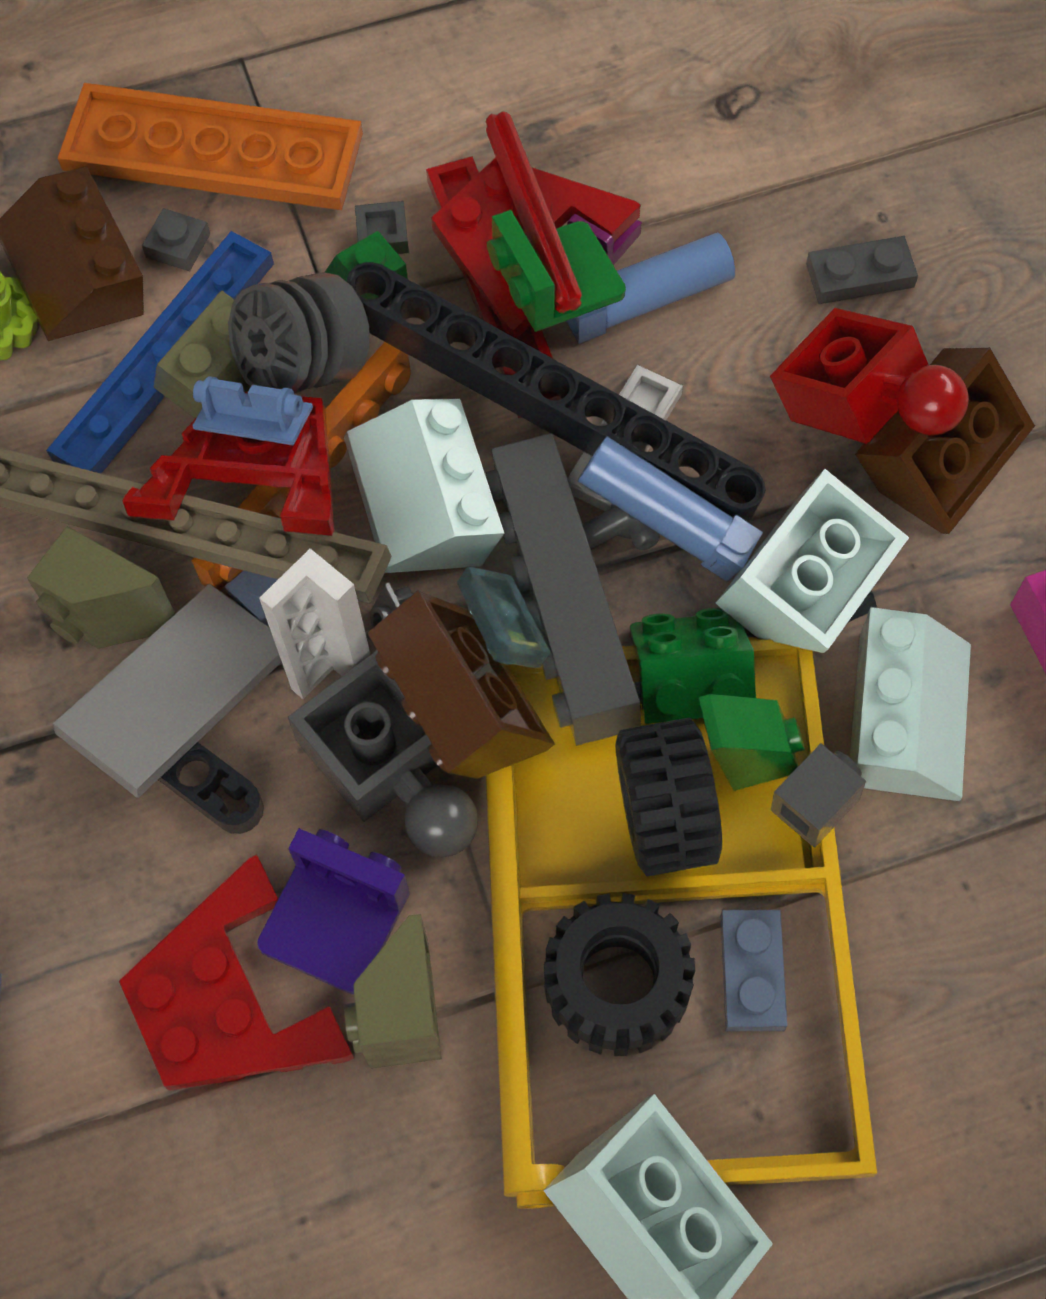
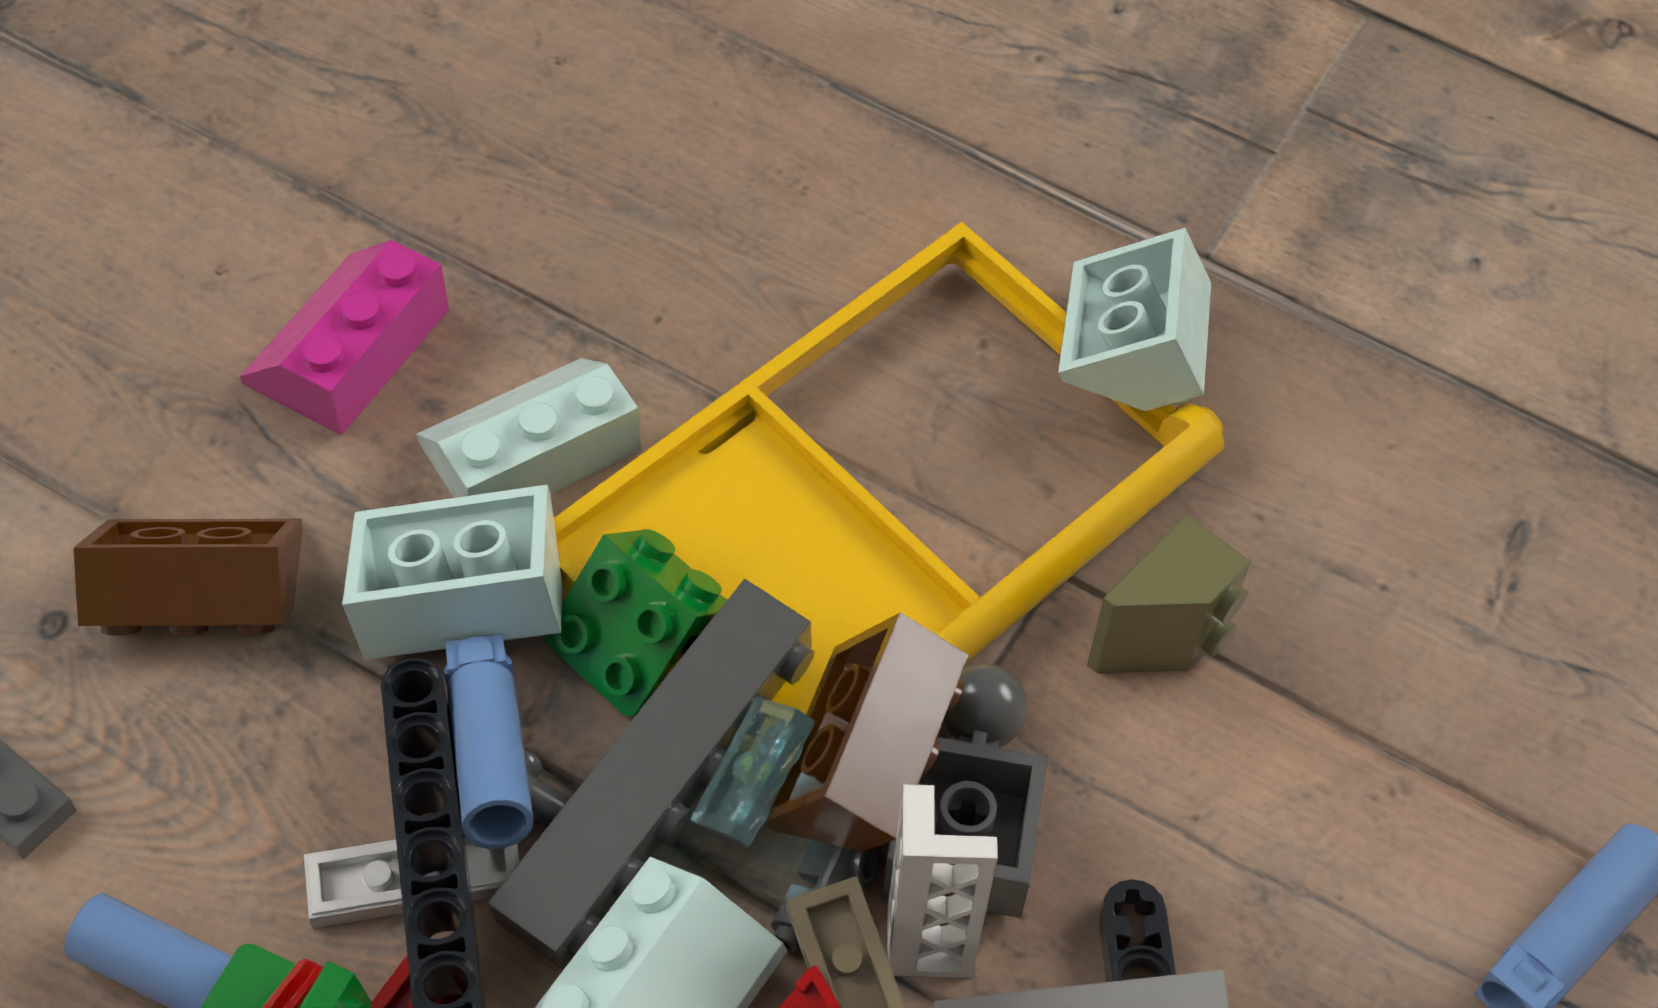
camera: 135 degrees left, 10 degrees down
(201, 1007) = (1322, 792): red wing -> none
(333, 909) = (1144, 740): dark purple bracket -> none
(630, 927) = (987, 438): black tyre -> none
(669, 796) = (813, 498): black tyre -> none
(751, 738) = (694, 486): green slope -> none
(753, 970) = (874, 410): sand blue plate -> none
(818, 794) = (694, 415): dark grey brick -> none
(863, 371) = (147, 695): red brick -> none

